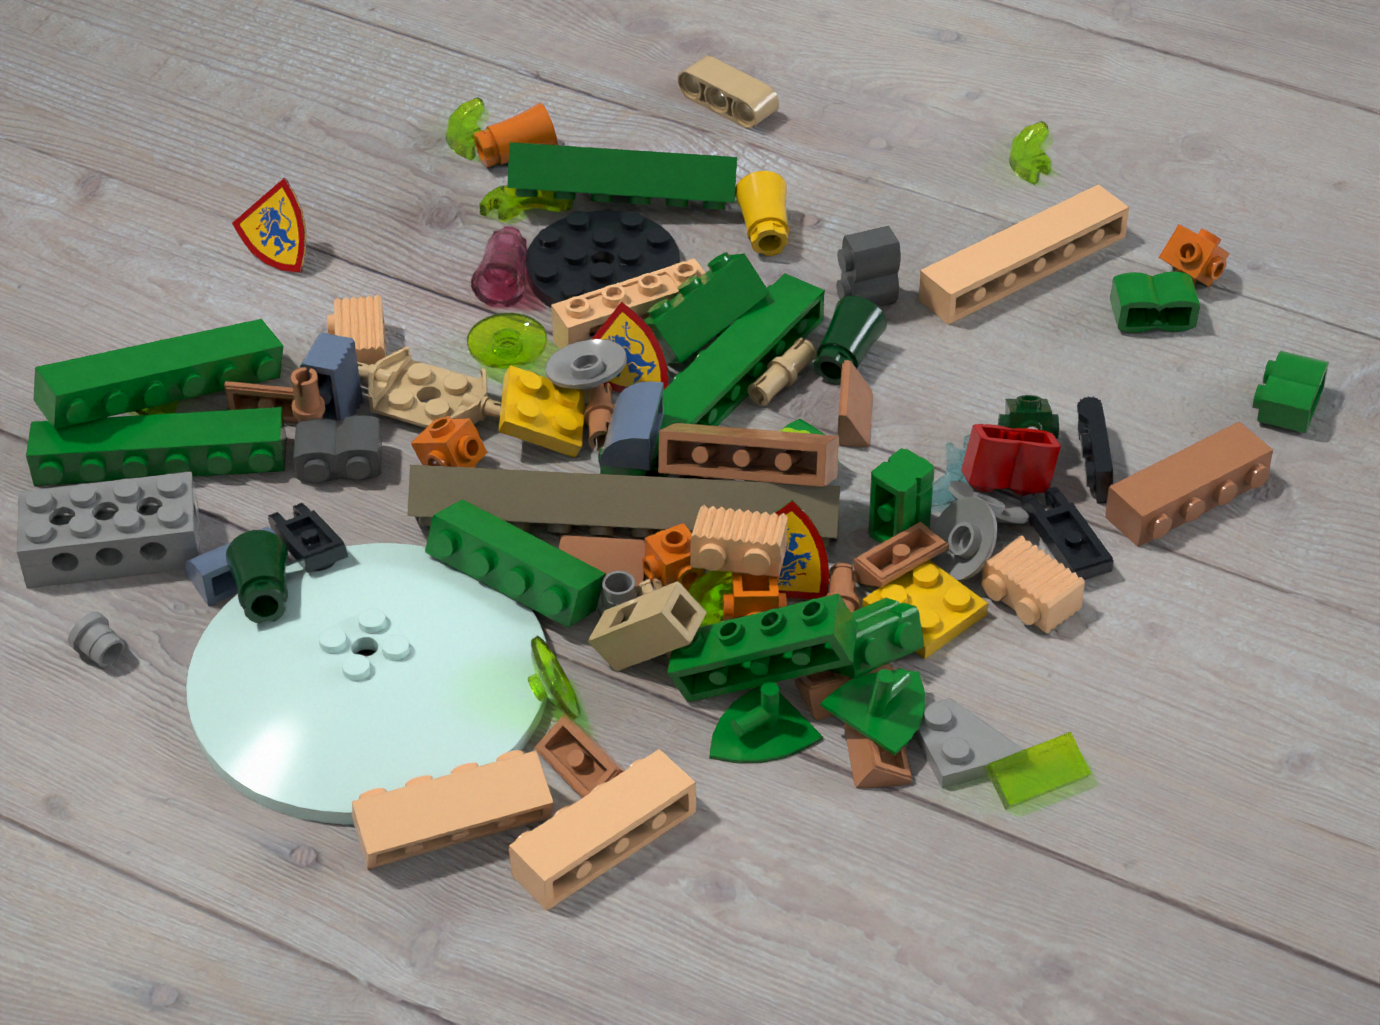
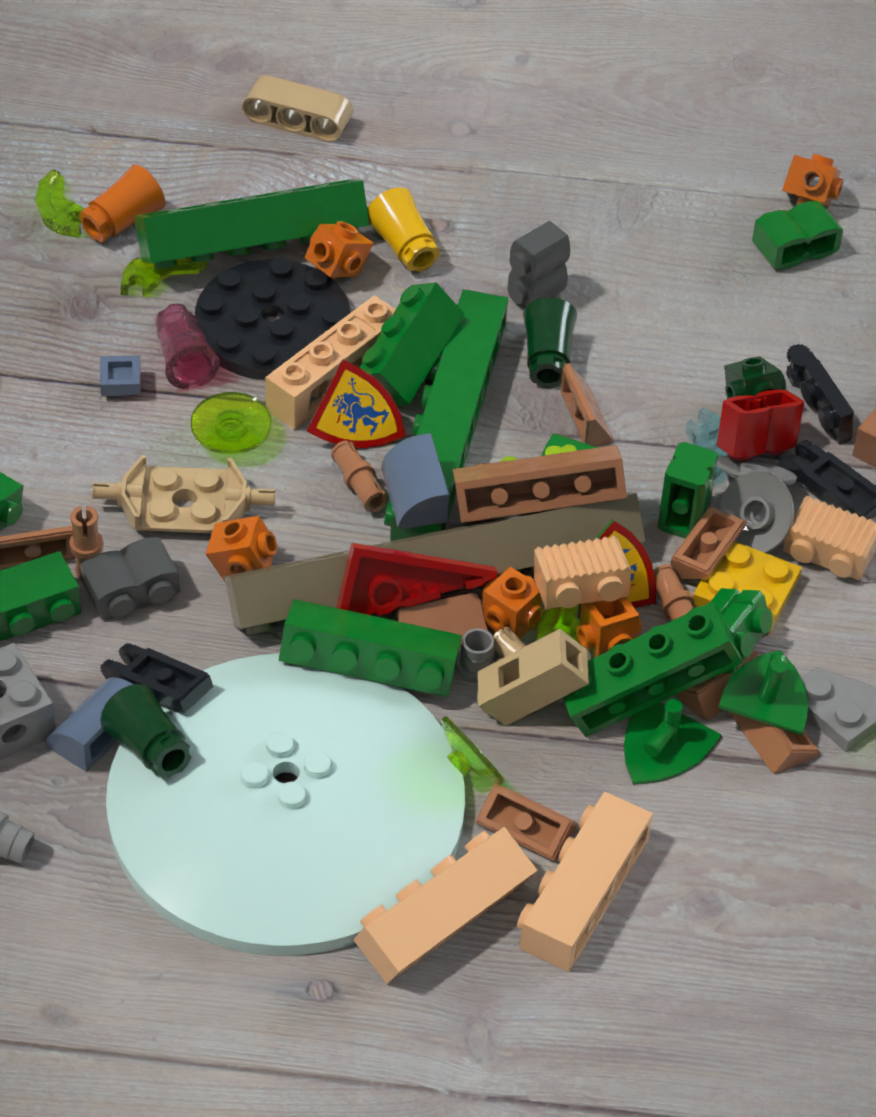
camera: 25 degrees left, 5 degrees up
(338, 374) = (94, 487): sand blue brick -> none
(364, 323) = (81, 453): light nougat brick -> none
(433, 279) = (120, 375): none -> sand blue plate
(542, 412) = (306, 487): yellow plate -> none
(557, 503) = (388, 578): none -> red wing
(586, 364) = (331, 429): light grey dish -> none
(690, 216) = (338, 250): none -> orange brick
(782, 372) = (503, 388): tan pin -> none
(1022, 254) = (657, 215): light nougat brick -> none
(1026, 155) = (605, 111): clear neon green piece -> none

